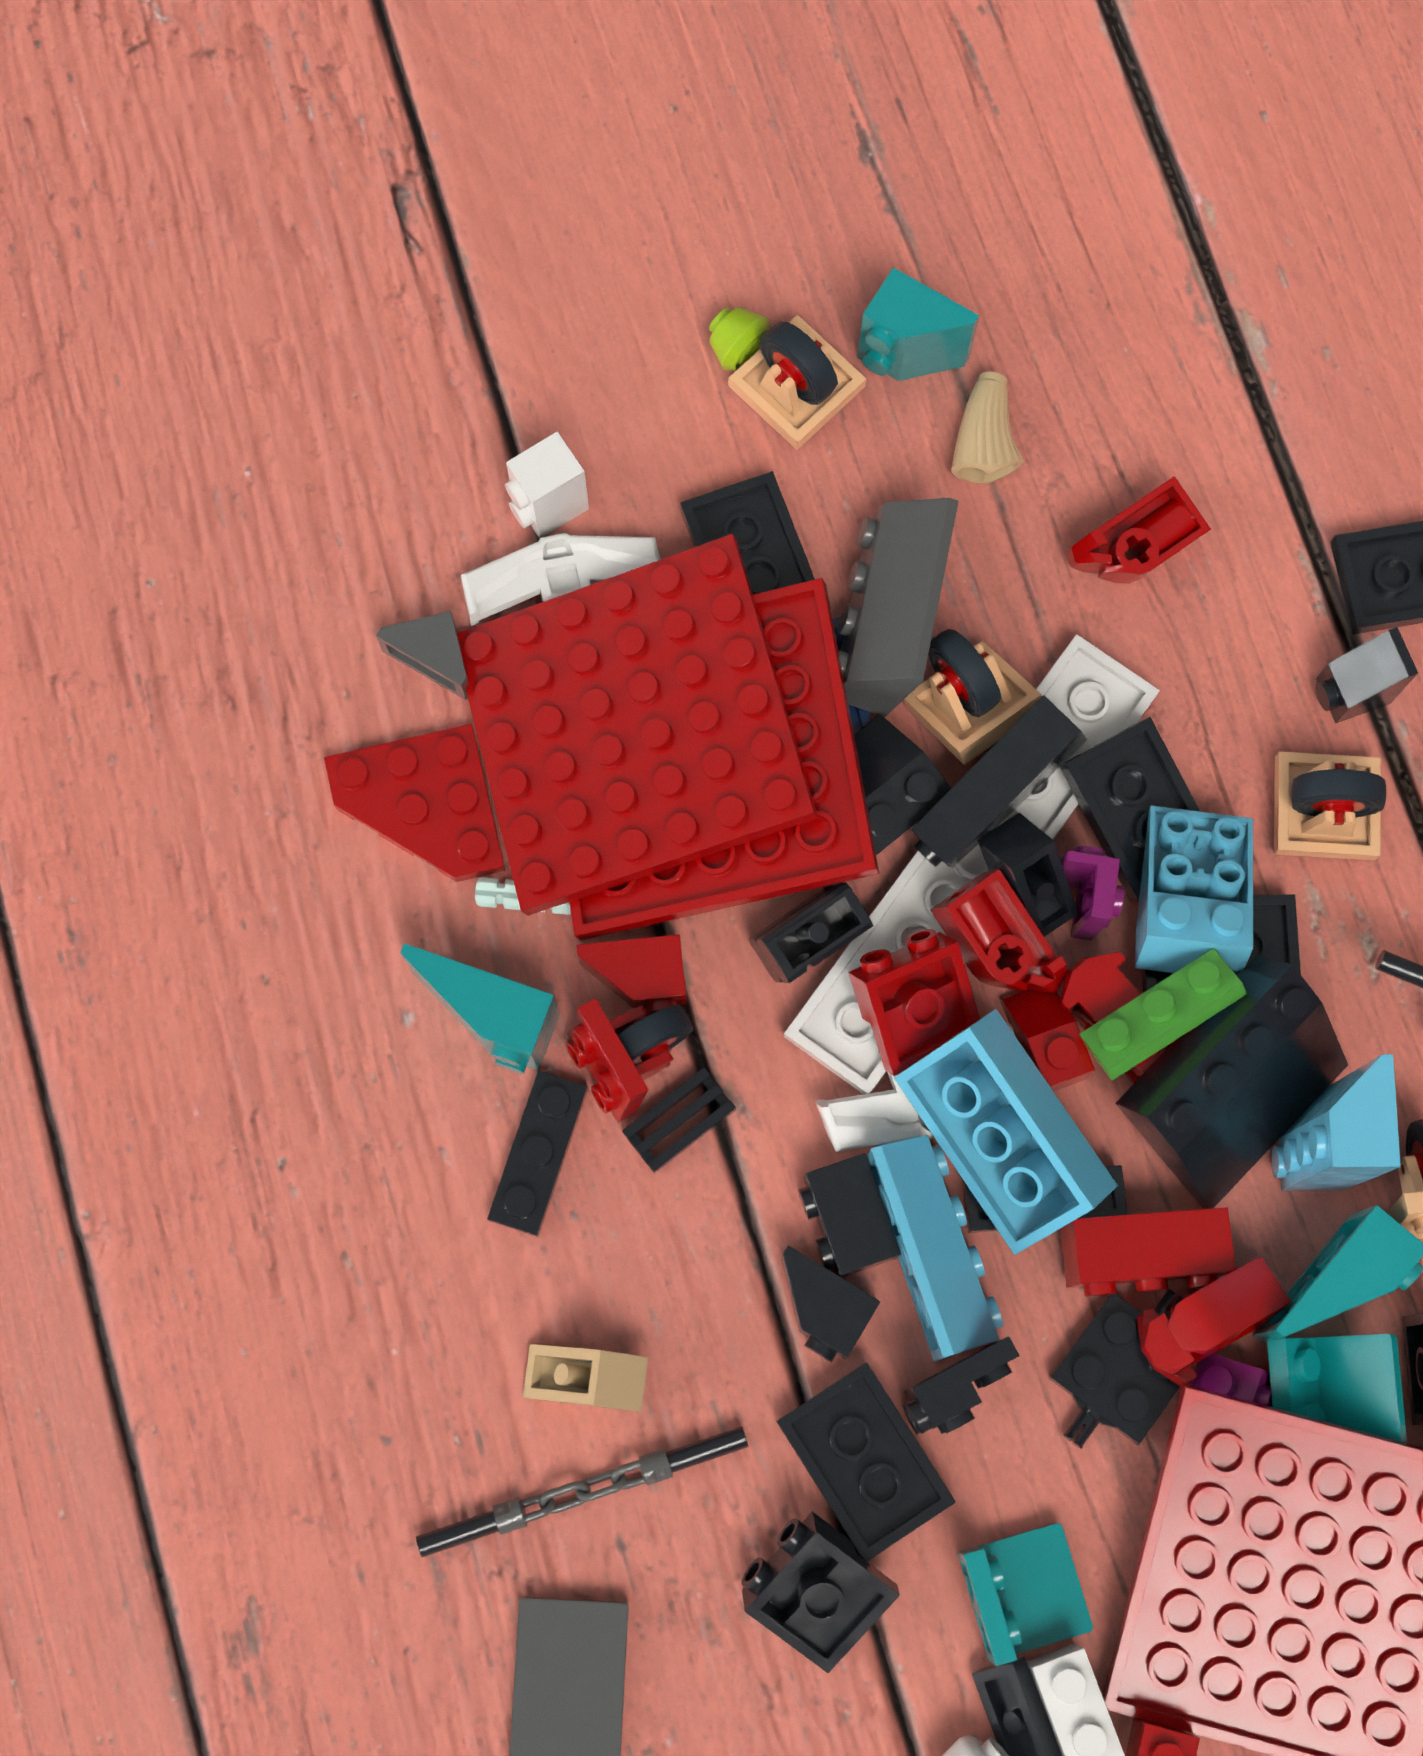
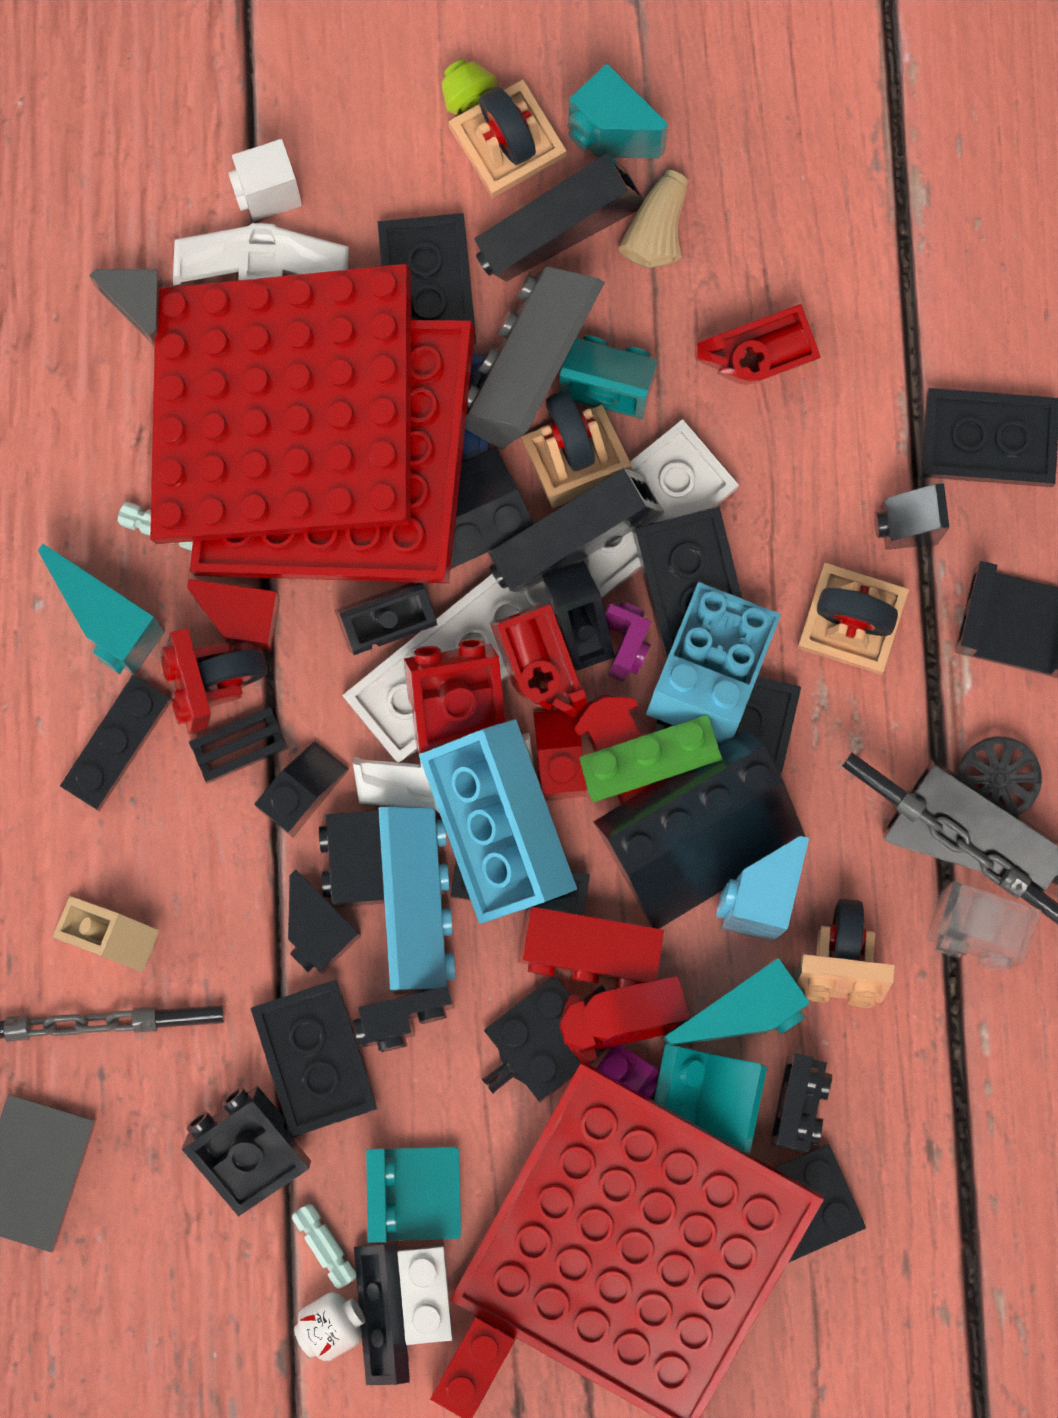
camera: 15 degrees right, 5 degrees up
(424, 799) = (97, 422): red plate -> none
(765, 1152) = (301, 788): none -> black slope
(880, 451) = (559, 219): none -> black slope
(937, 1682) = (324, 1246): none -> light aqua axle
(989, 607) = (608, 376): none -> teal slope

